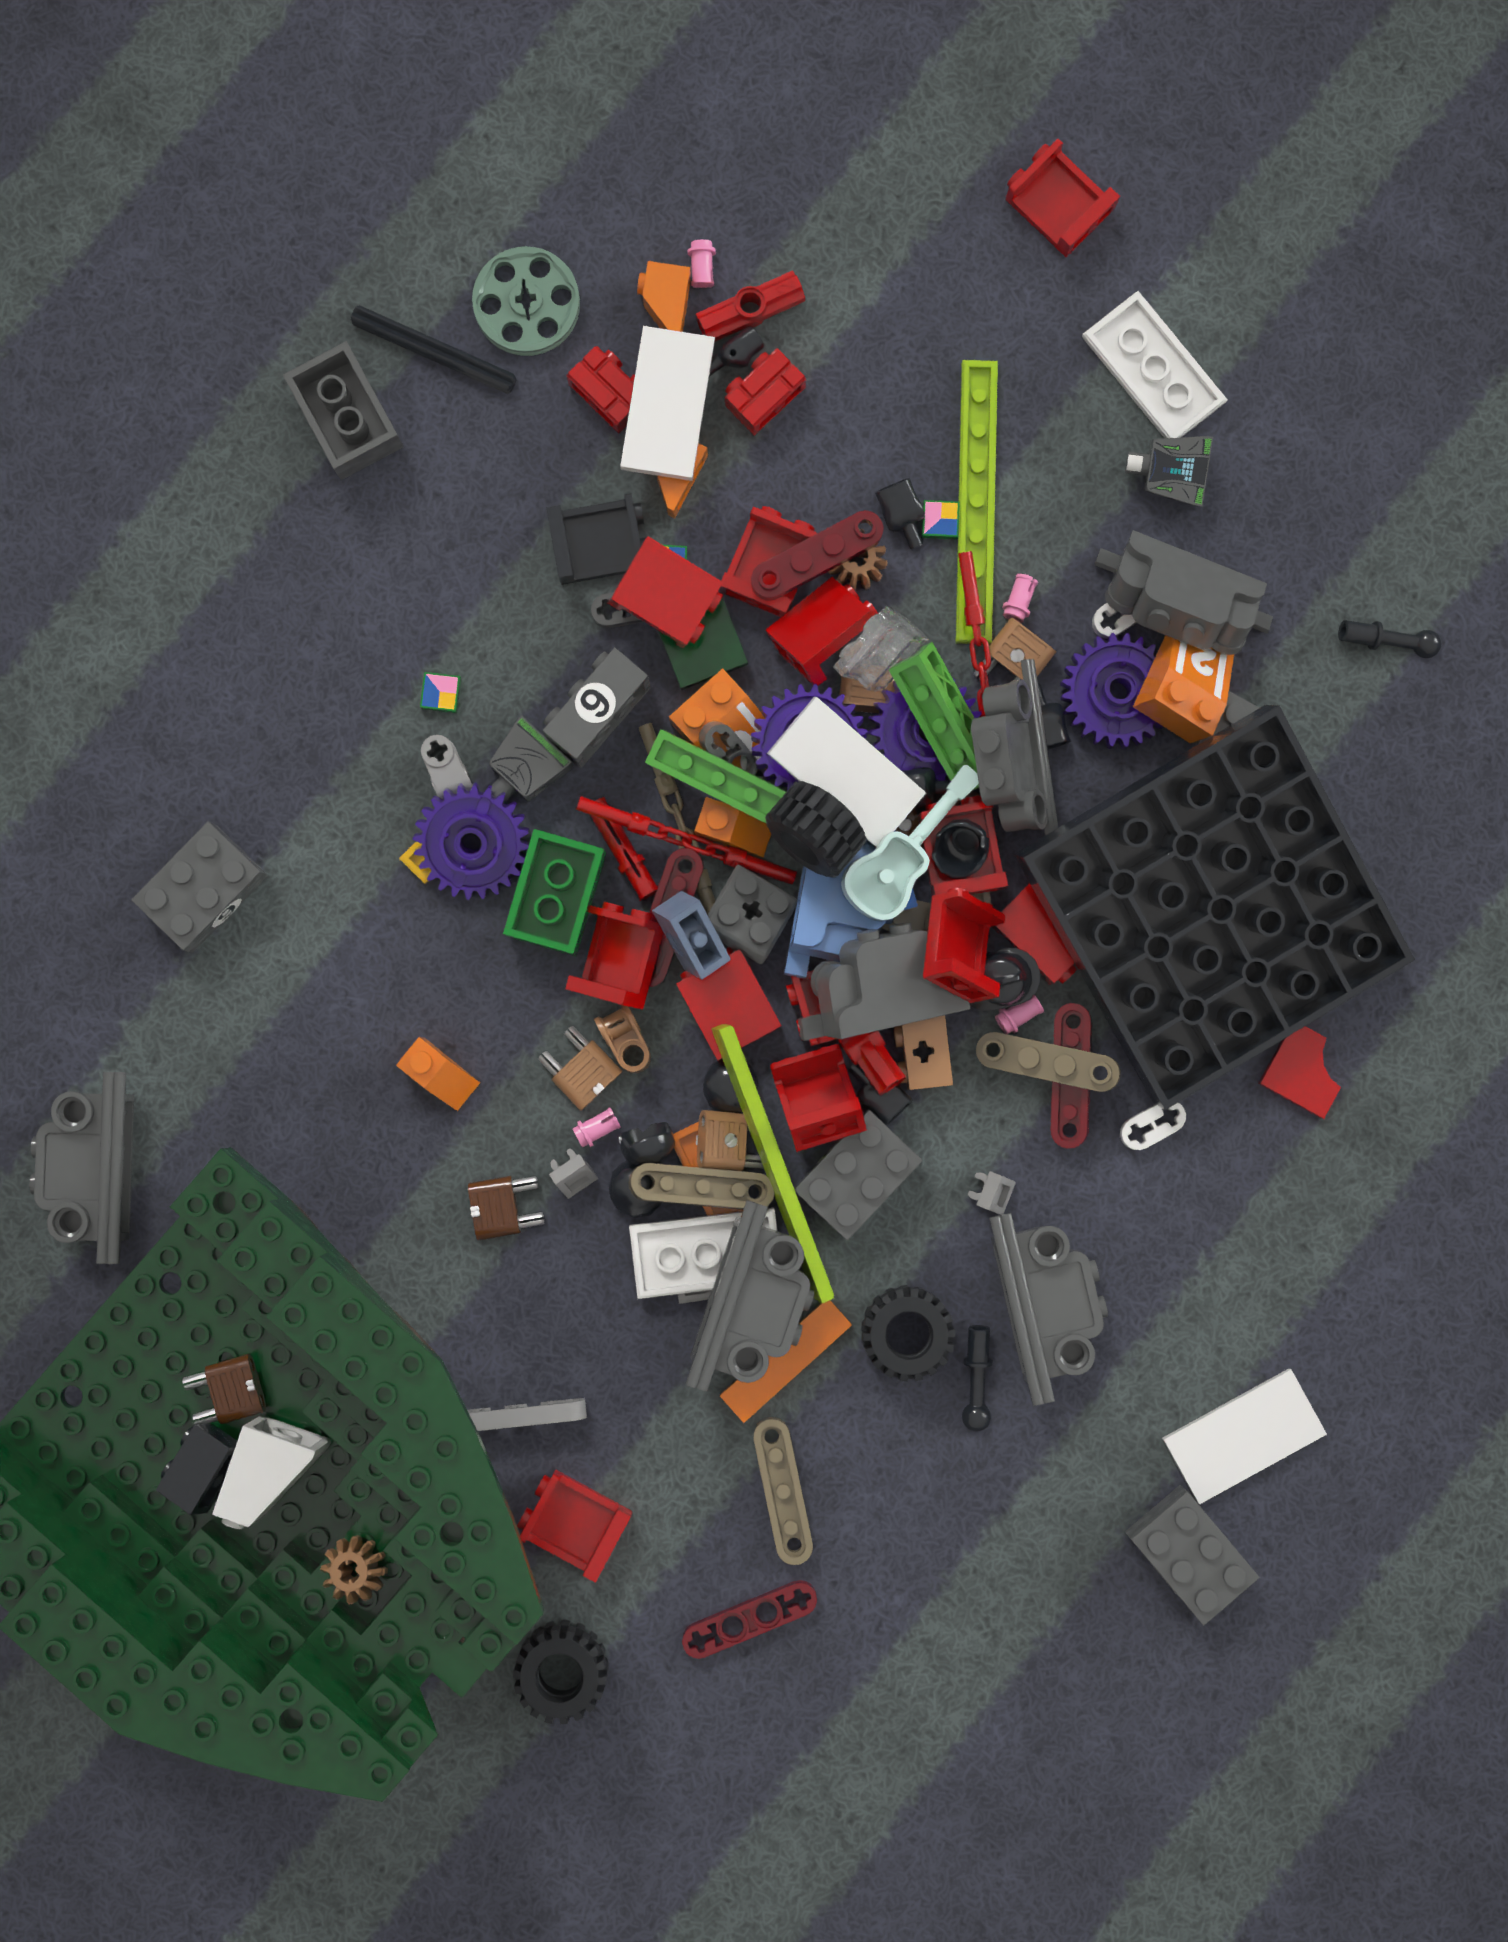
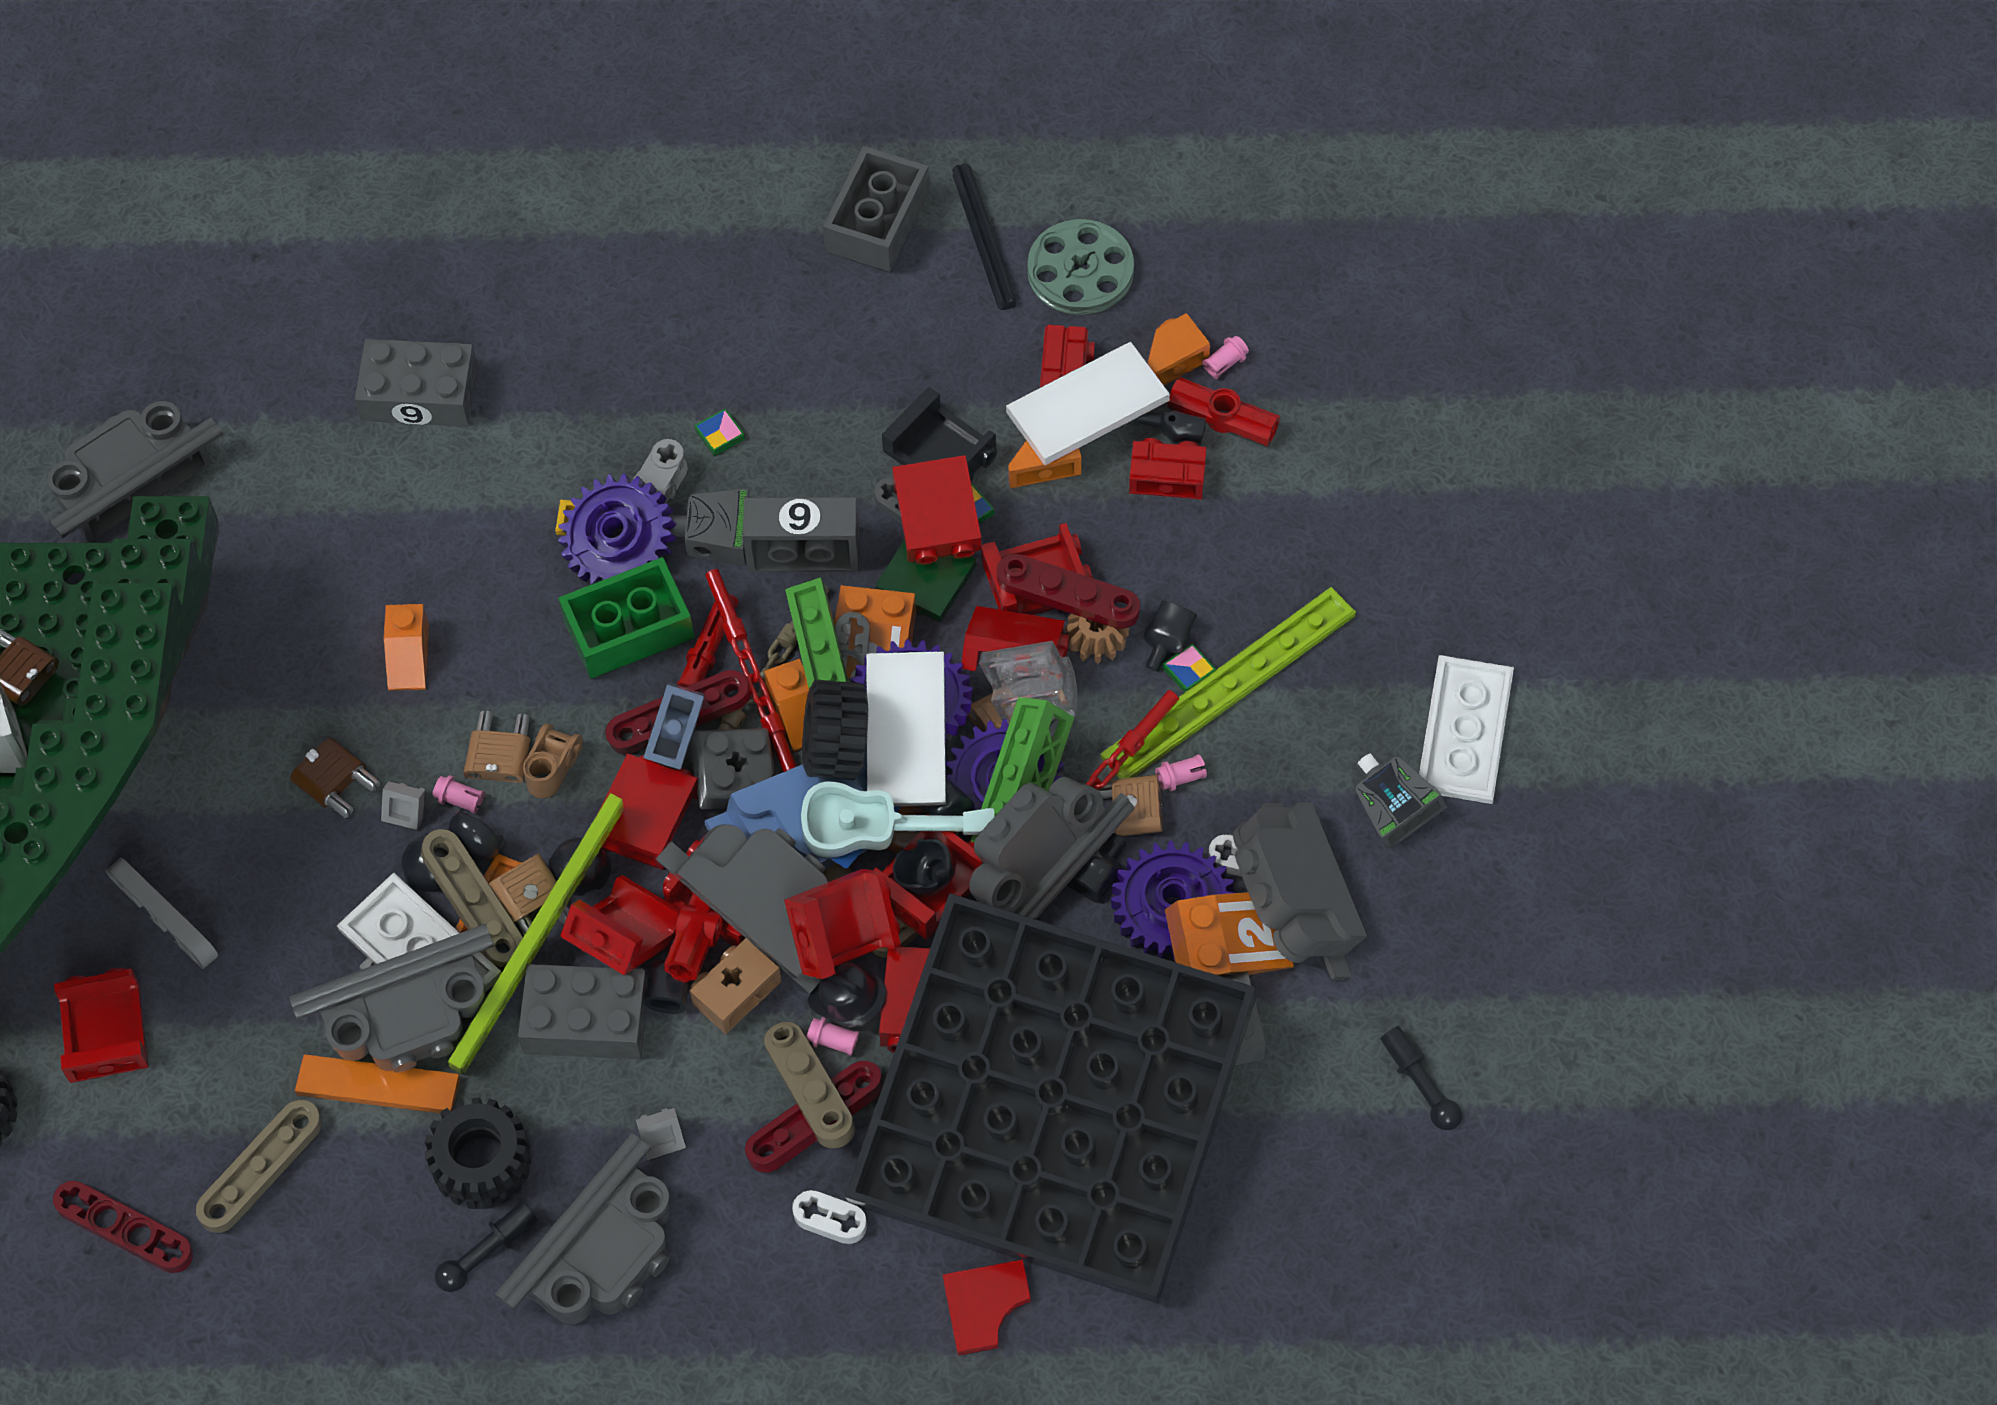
camera: 55 degrees right, 25 degrees down
(619, 956) = (615, 700): red panel -> none
(1059, 198) = (1528, 555): red panel -> none

